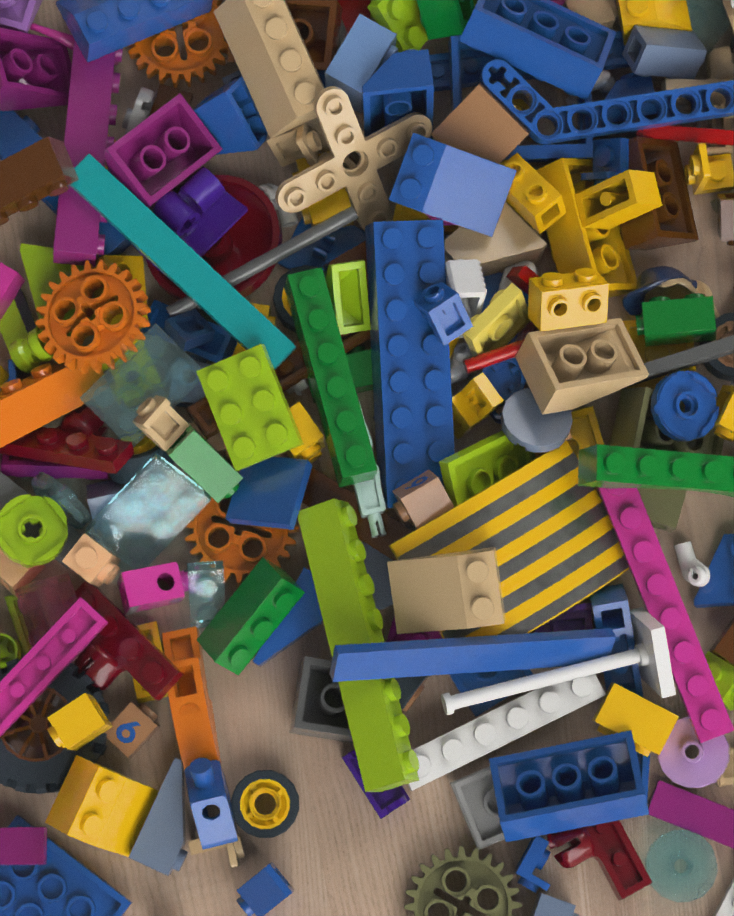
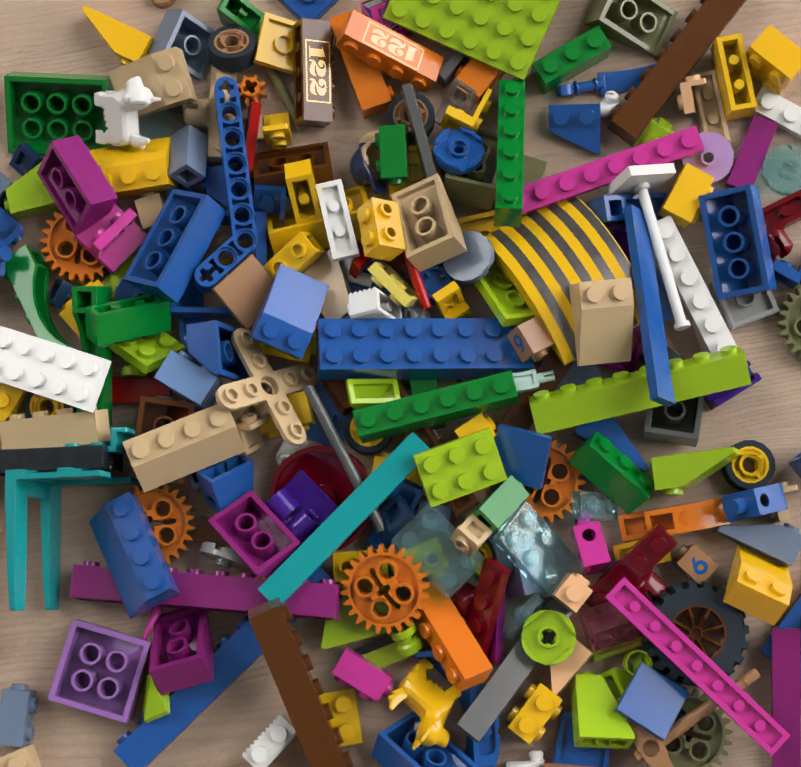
camera: 80 degrees left, 0 degrees up
(78, 723) = (704, 597): yellow brick -> none
(250, 701) = (686, 470): none -> lime slope
(444, 312) = (390, 318): blue bracket -> none
(579, 244) = (337, 220): none -> white plate
(691, 568) = (573, 154): white arm -> none

